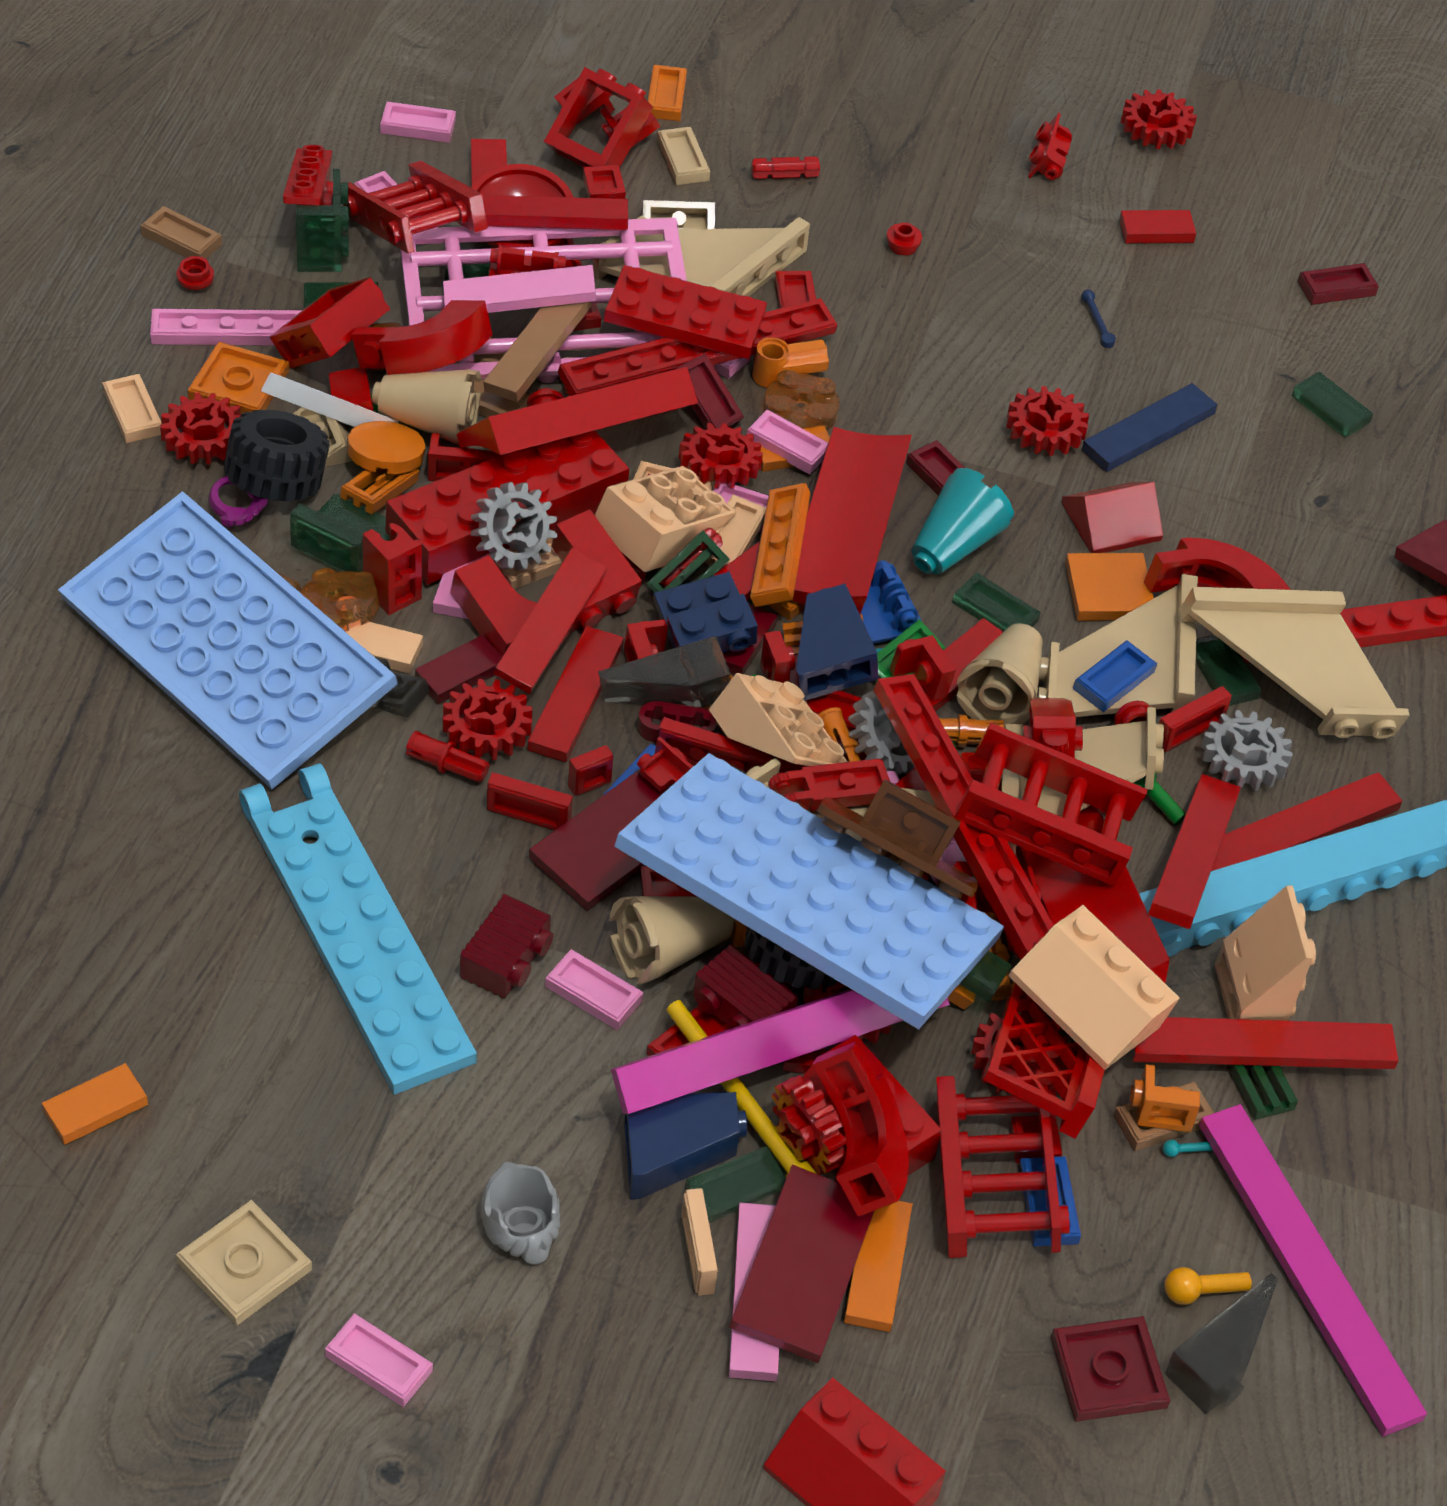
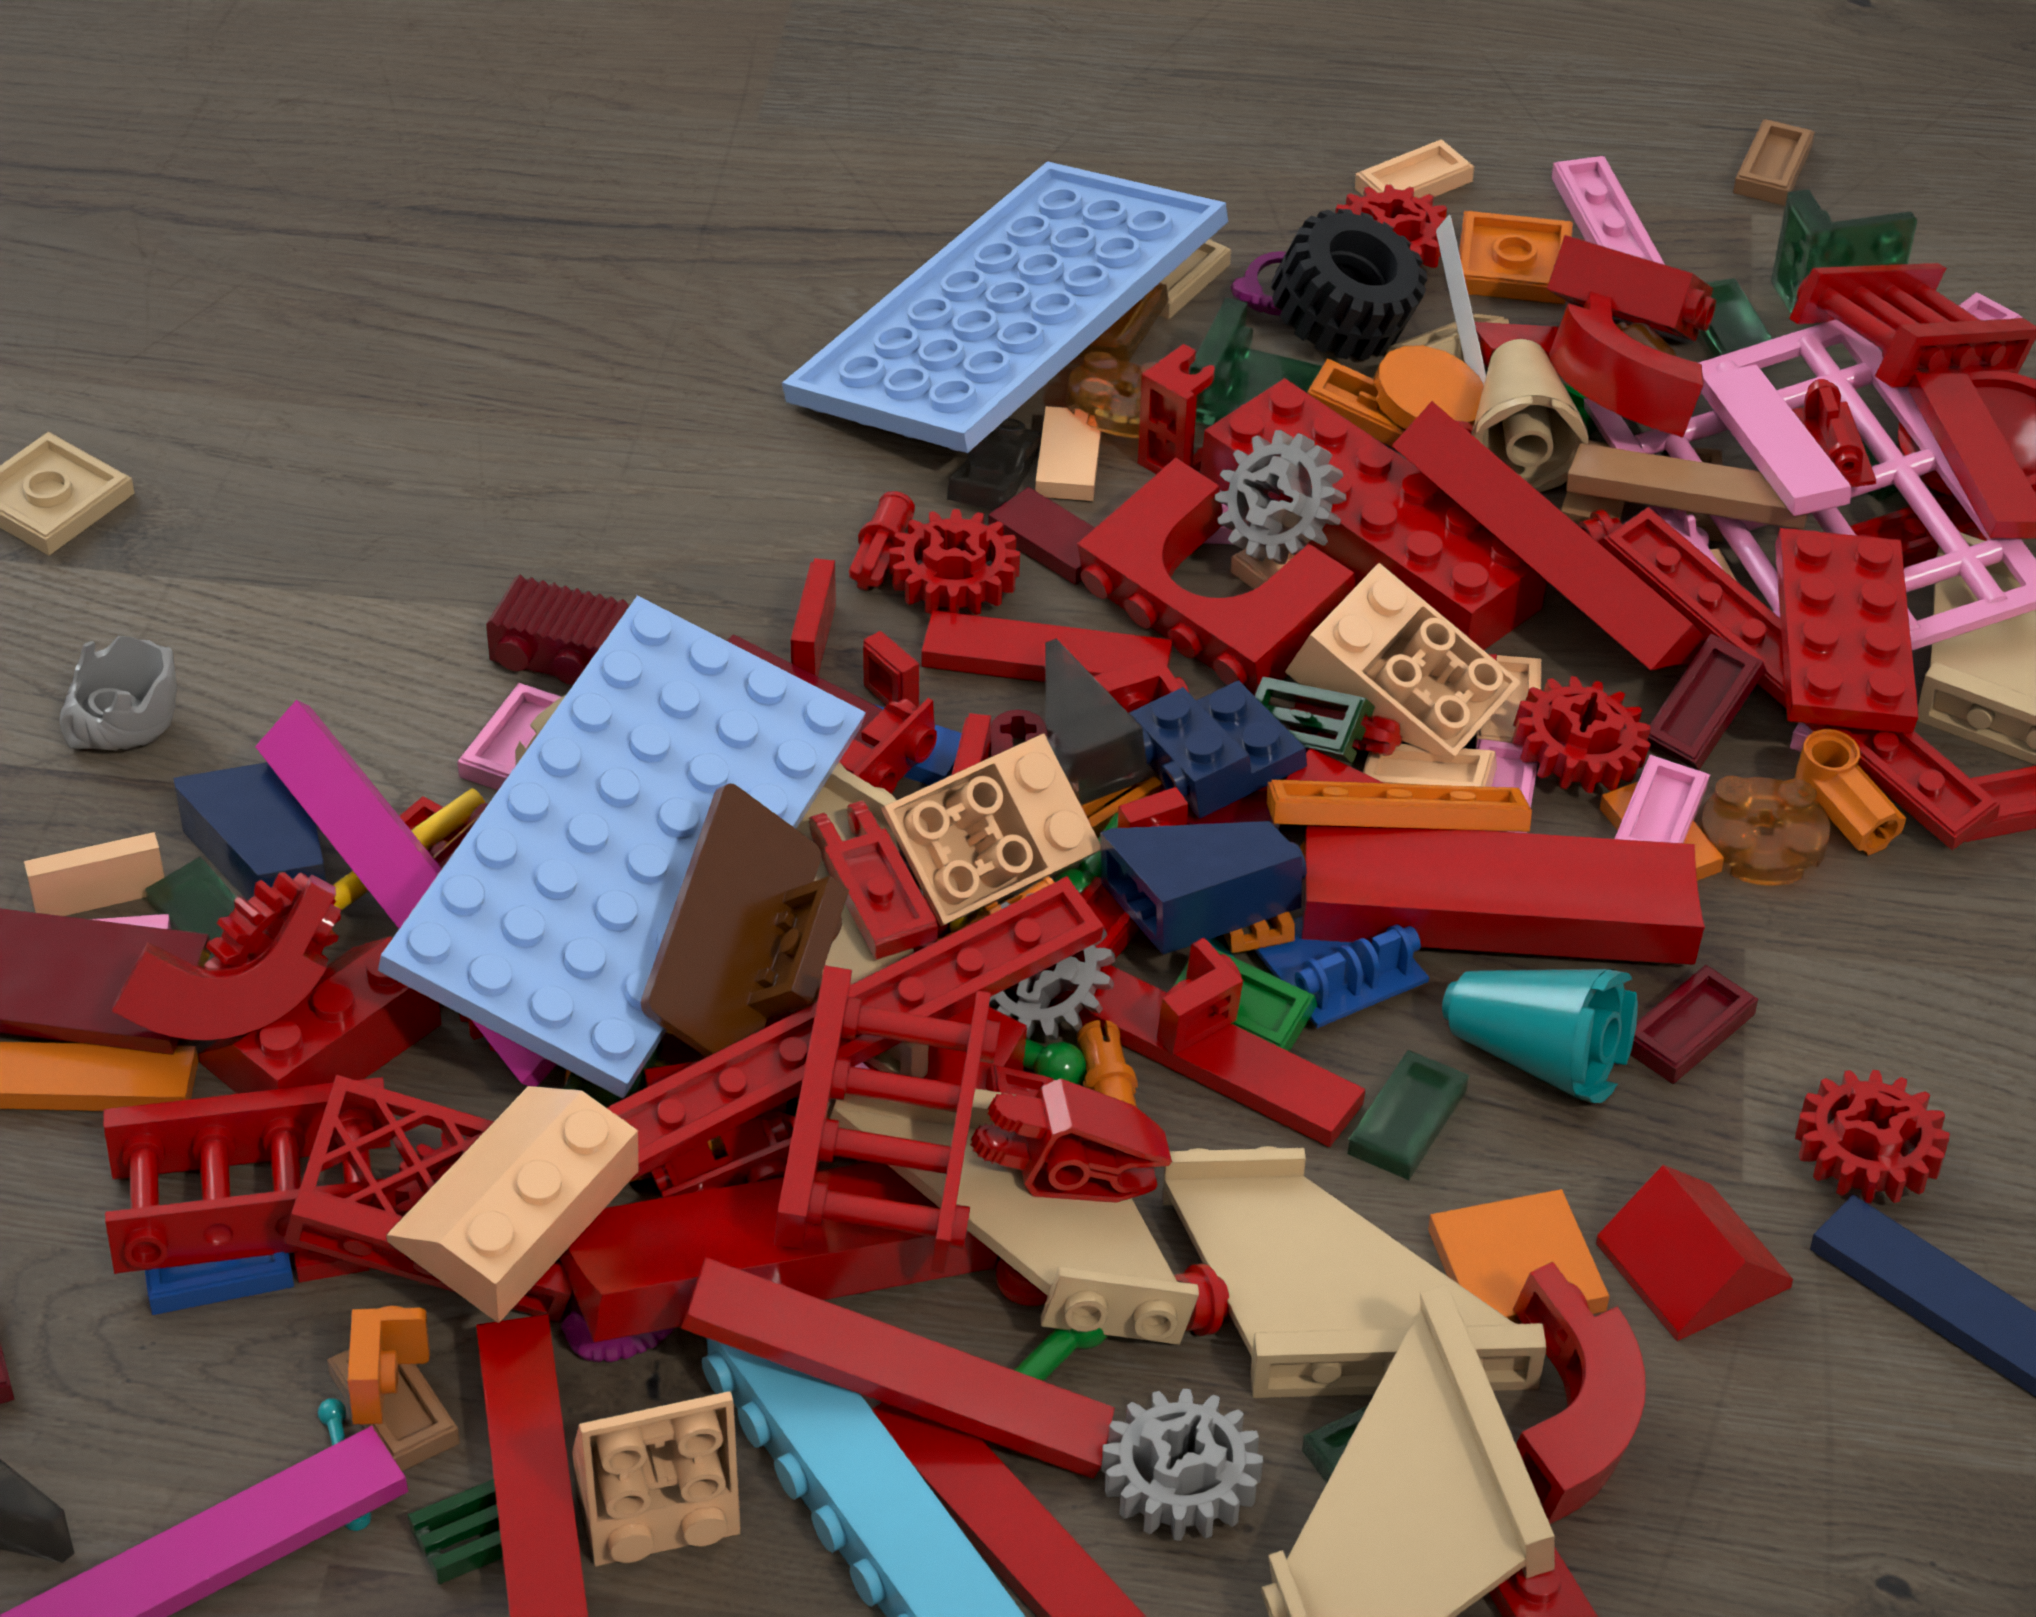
camera: 85 degrees right, 5 degrees down
(94, 1104) = (261, 339): orange tile -> none
(195, 273) = (1696, 181): red plate -> none
(310, 177) = (1939, 227): red bracket -> none
(360, 934) = (567, 506): medium azure hinge -> none
(550, 621) = (1130, 571): red tile -> none
(1003, 677) = (1230, 1101): tan cone -> none
(1114, 676) = (1272, 1251): blue tile -> none
(1185, 1285) = (66, 1433): light orange bar -> none
(1194, 718) = (1215, 1368): red tile -> none

